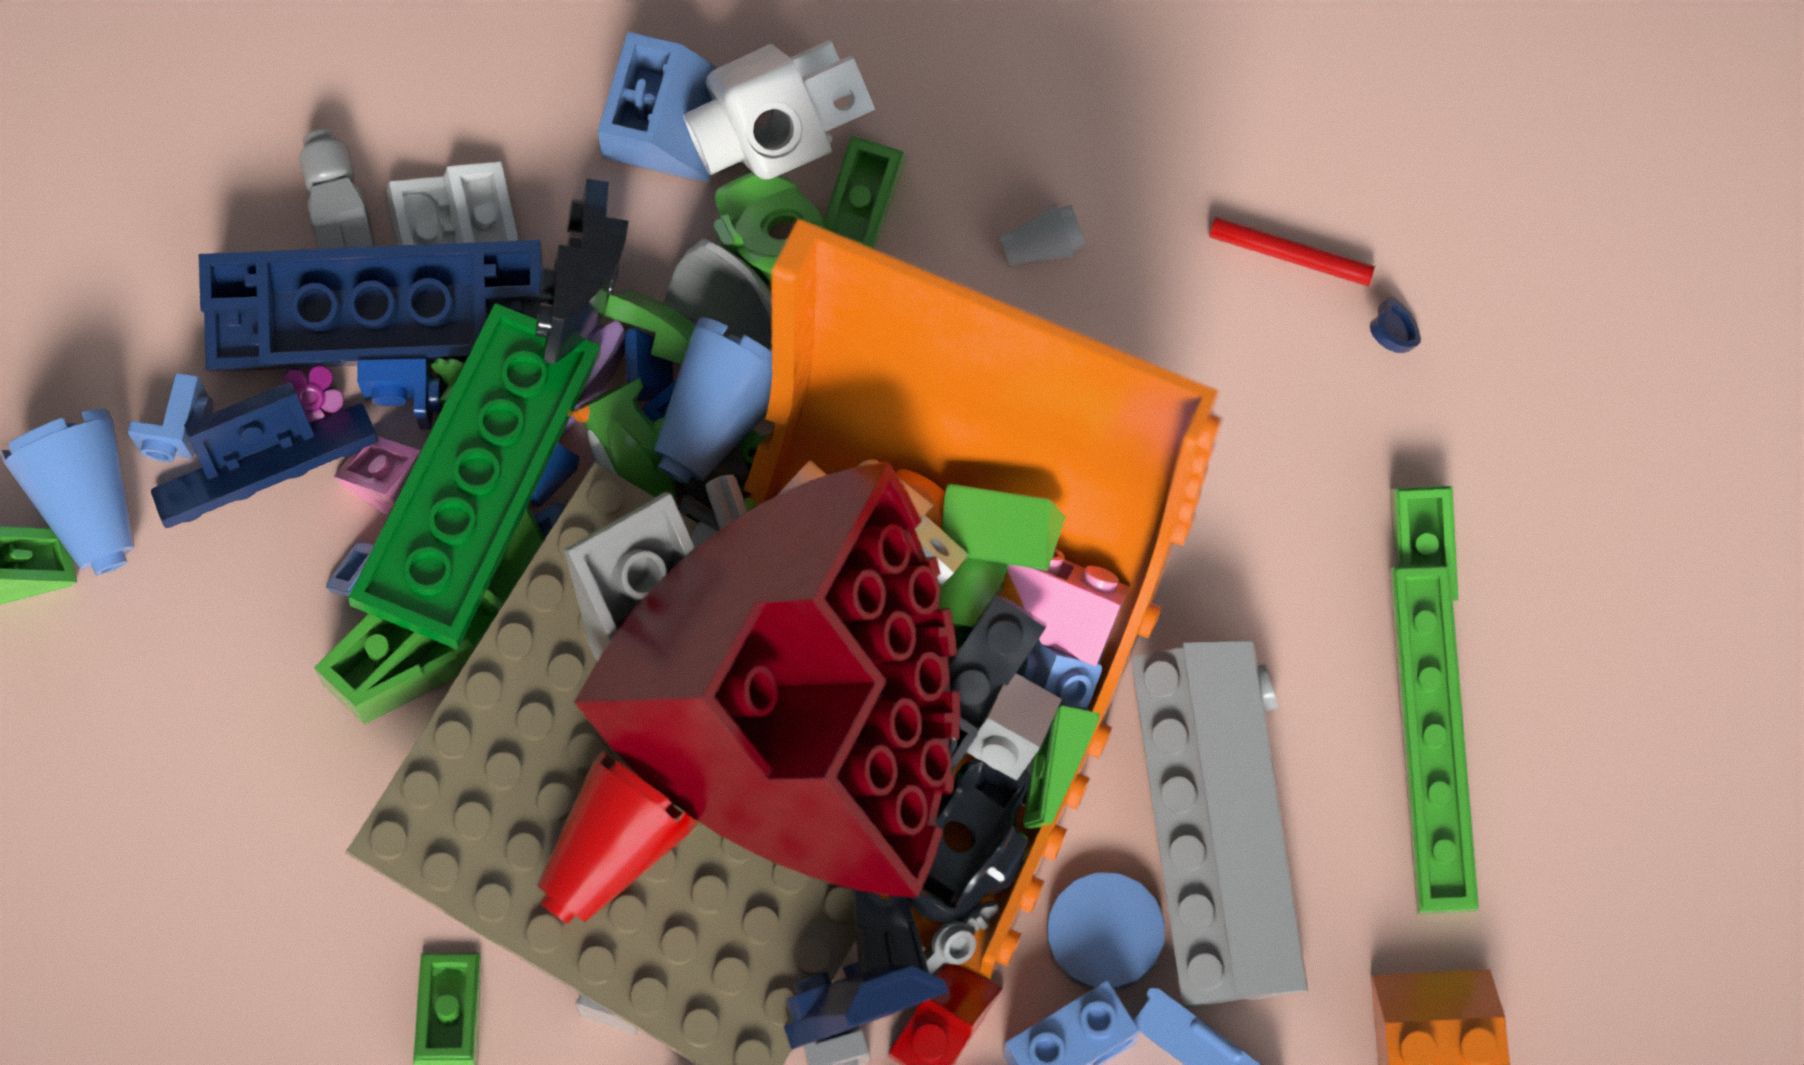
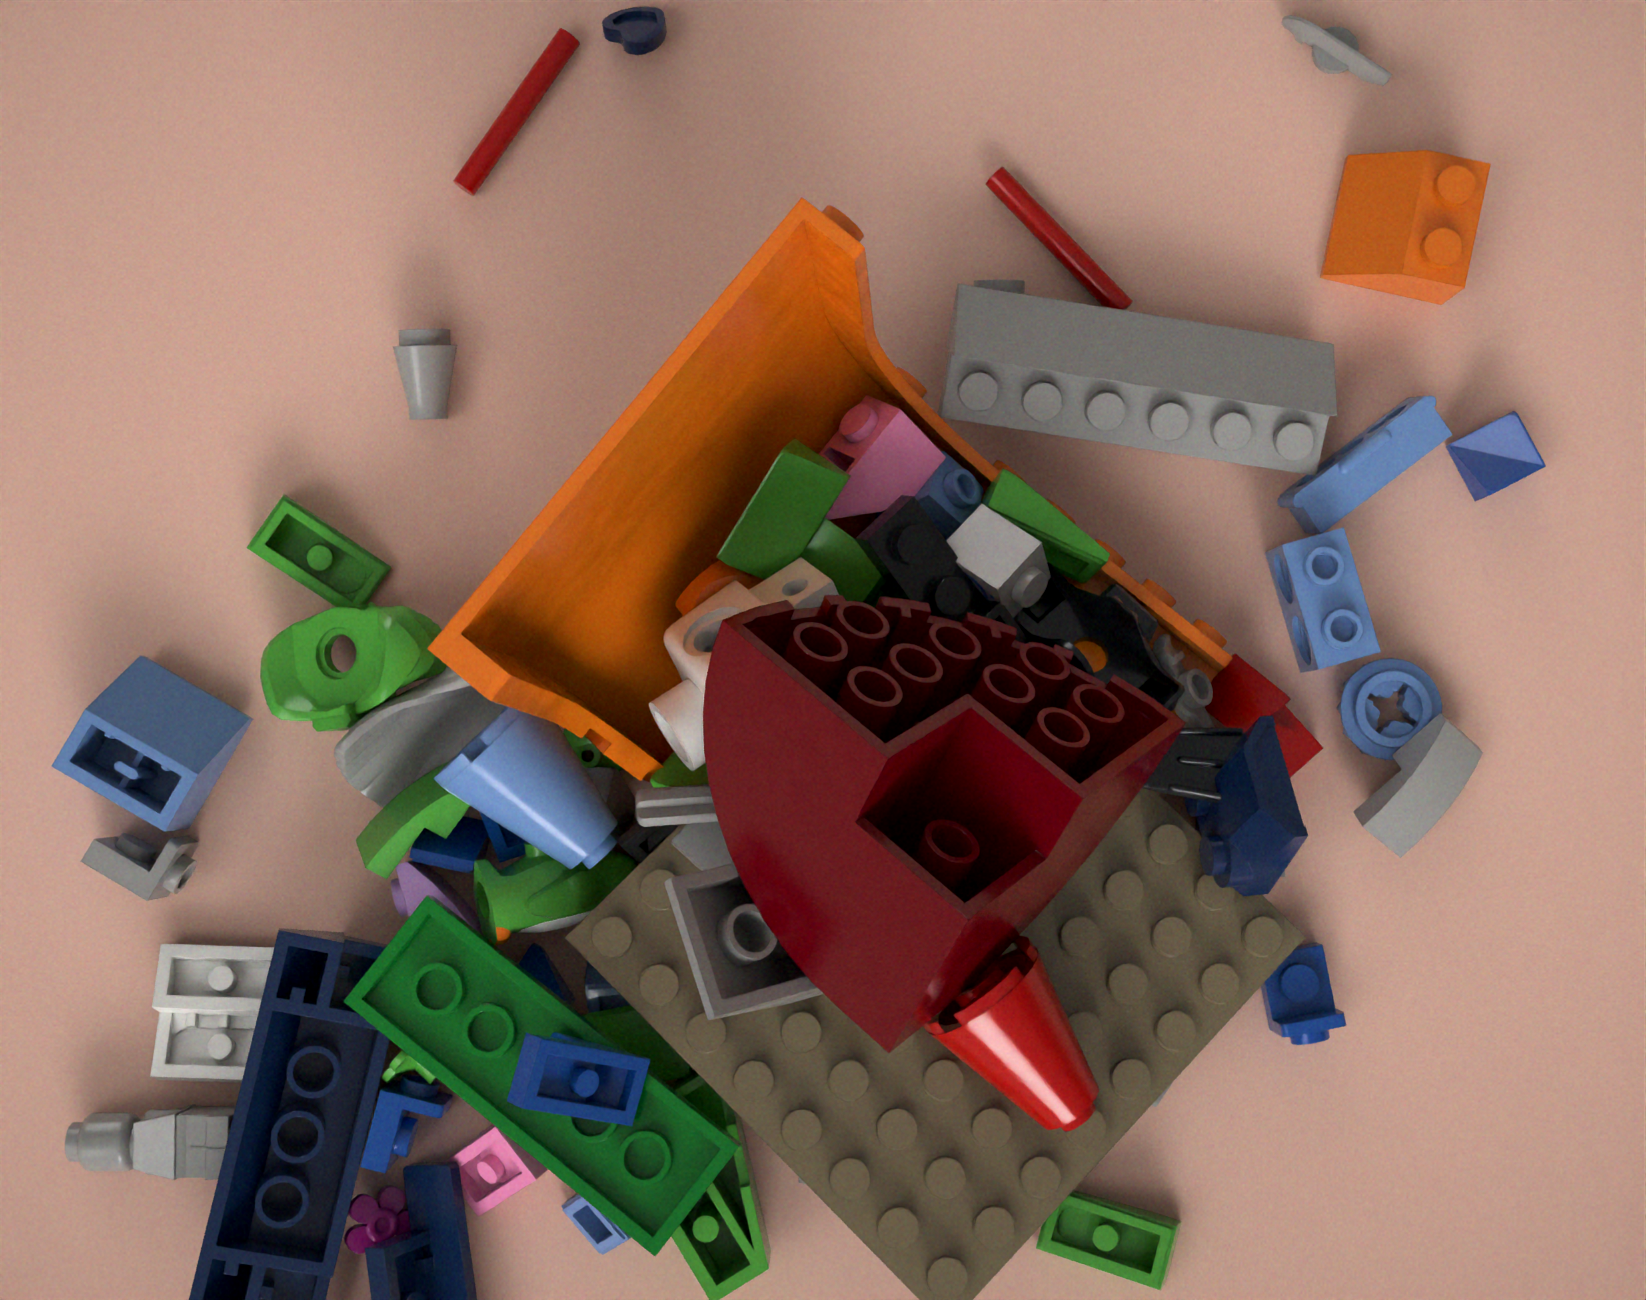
camera: 75 degrees left, 15 degrees up
(482, 491) = (578, 1079): none -> blue slope
(560, 130) = (132, 864): none -> light grey bracket
(581, 275) = (336, 894): black slope -> none
(801, 105) = (201, 625): white piece -> none
(1105, 931) = (1206, 531): medium blue tile -> none
(1326, 733) = (1057, 240): none -> red bar
(1425, 528) = (880, 75): bright green slope -> none
(1433, 740) = (1096, 133): bright green tile -> none
(1581, 931) = (1335, 50): none -> light grey piece

